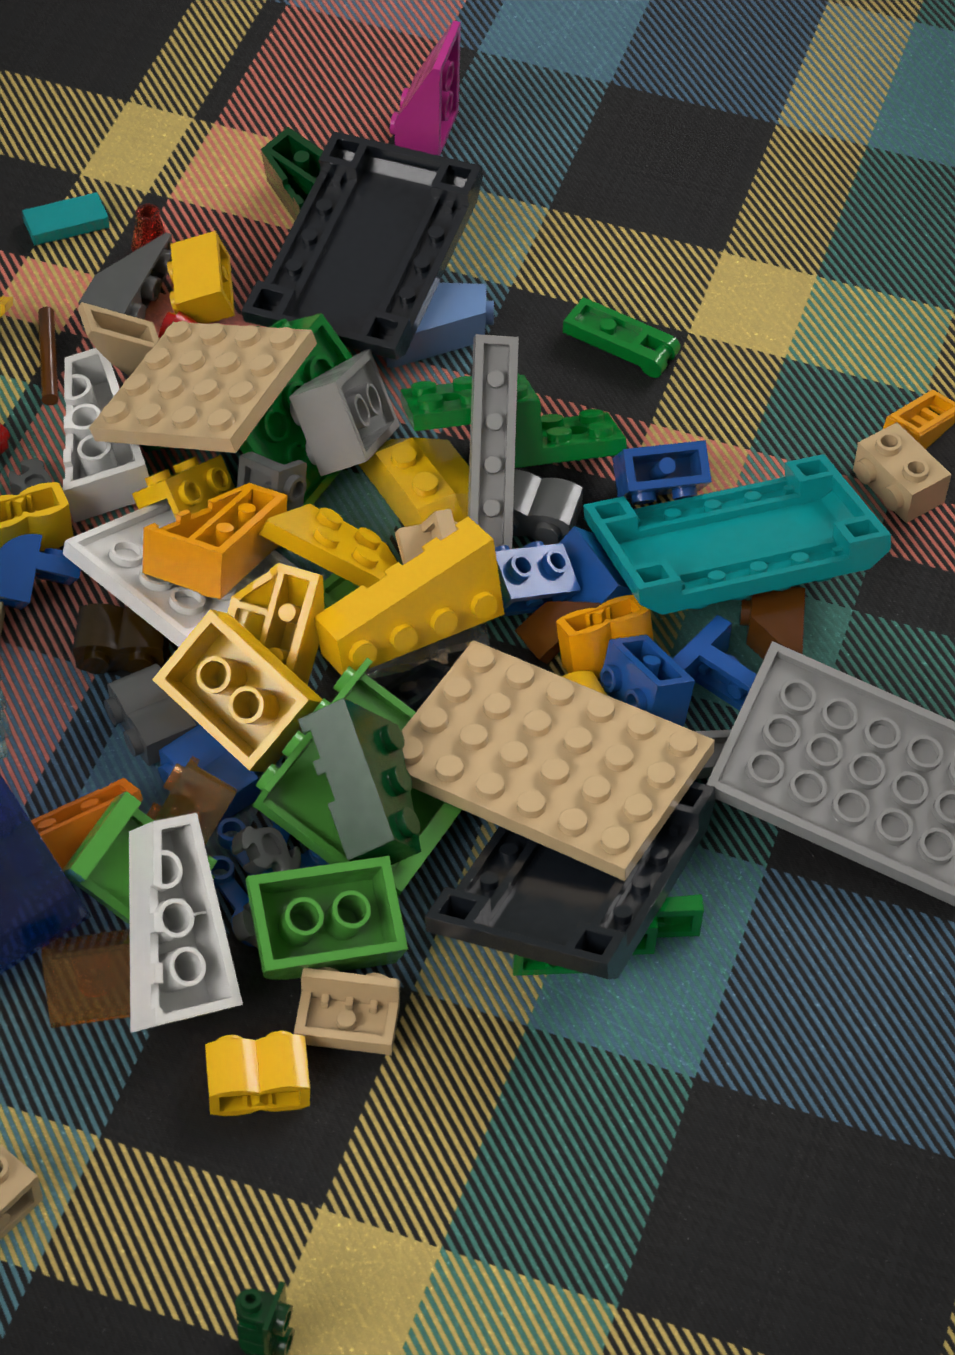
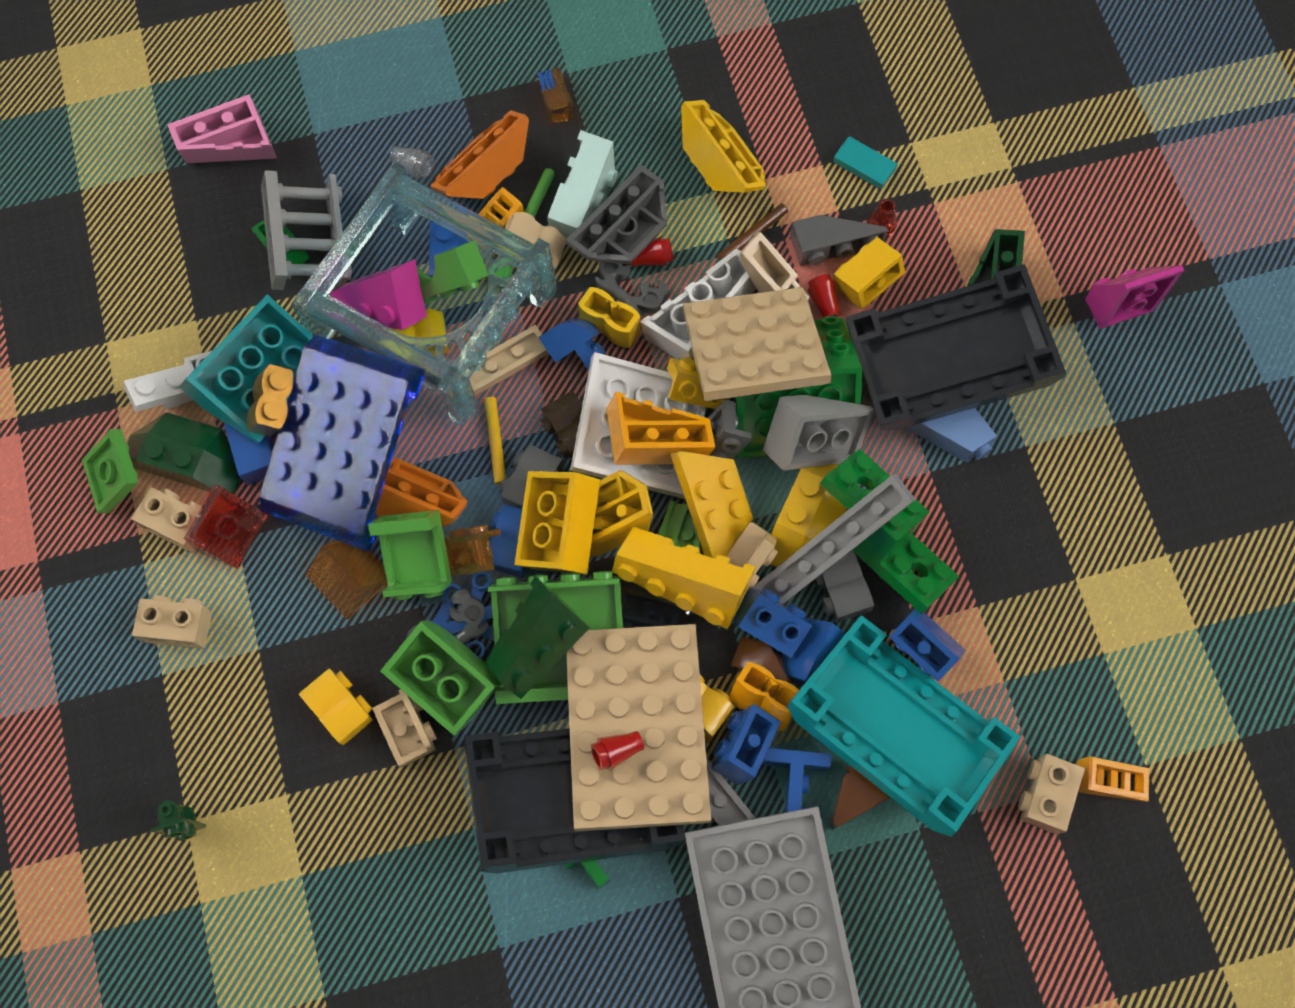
camera: 60 degrees right, 20 degrees up
(65, 729) = (495, 440): none -> yellow bar
(176, 927) = (370, 609): white wedge -> none
(566, 771) = (615, 749): none -> red cone
(621, 336) = (1031, 542): green plate -> none

